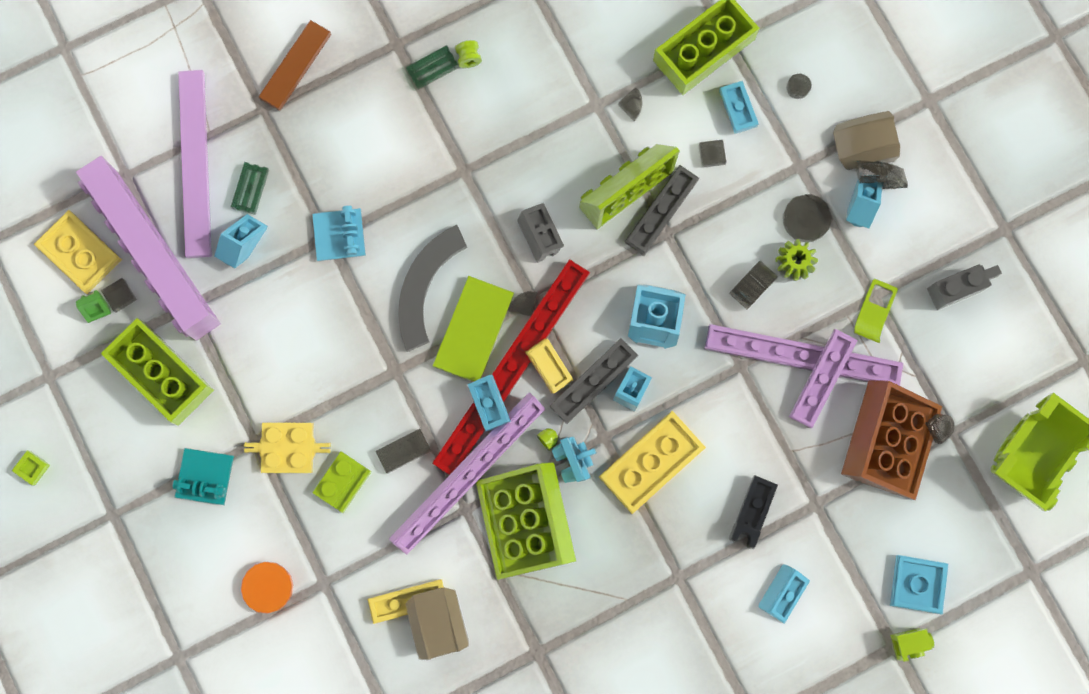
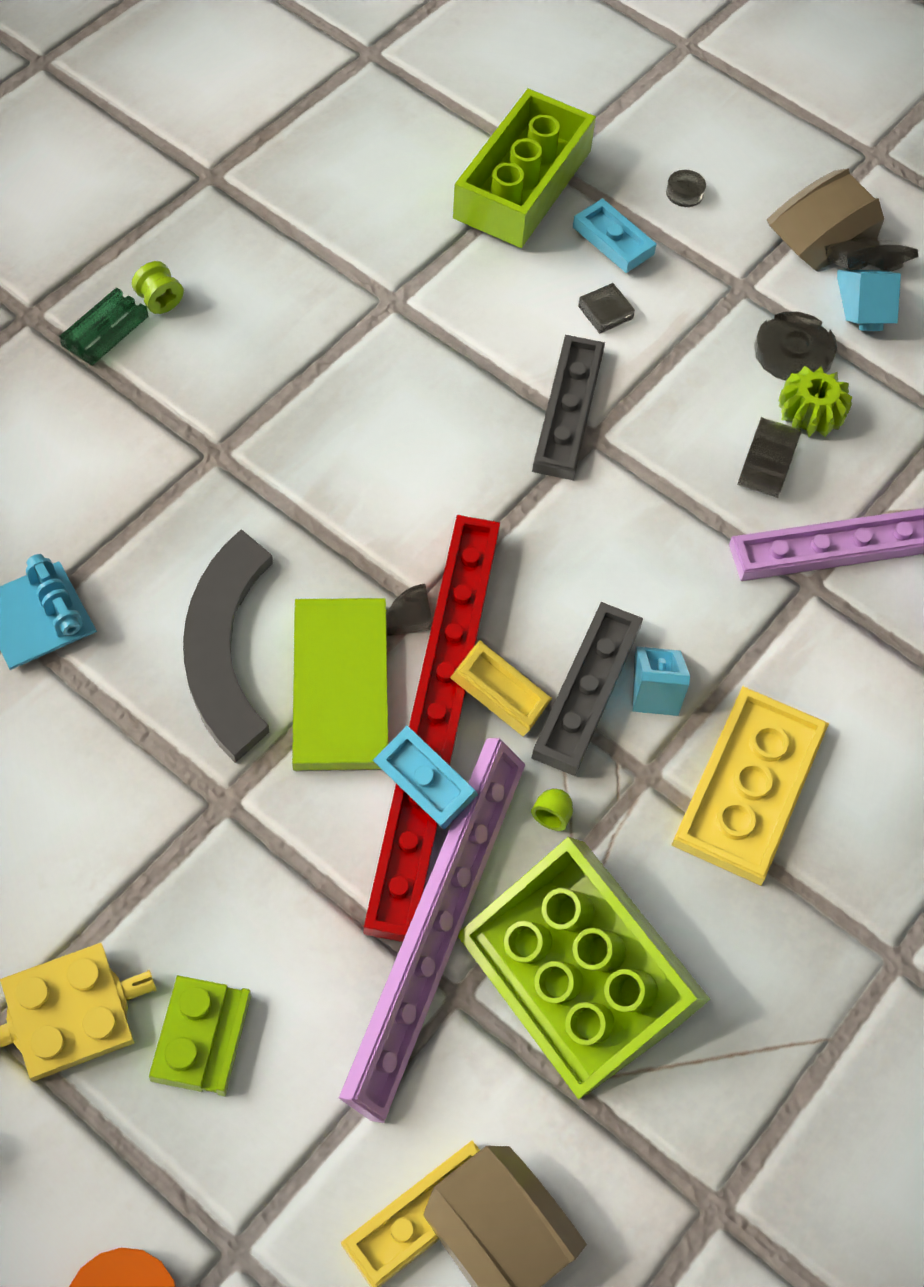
camera: 25 degrees left, 20 degrees down
(403, 451) = (298, 933): clear smoke tile -> none
(540, 232) = (388, 493): dark grey hinge -> none
(578, 458) = (599, 812): medium azure hips -> none
(629, 184) = (503, 375): lime slope -> none
(632, 104) = (449, 281): clear smoke tile -> none
(656, 316) = (644, 553): medium azure slope -> none

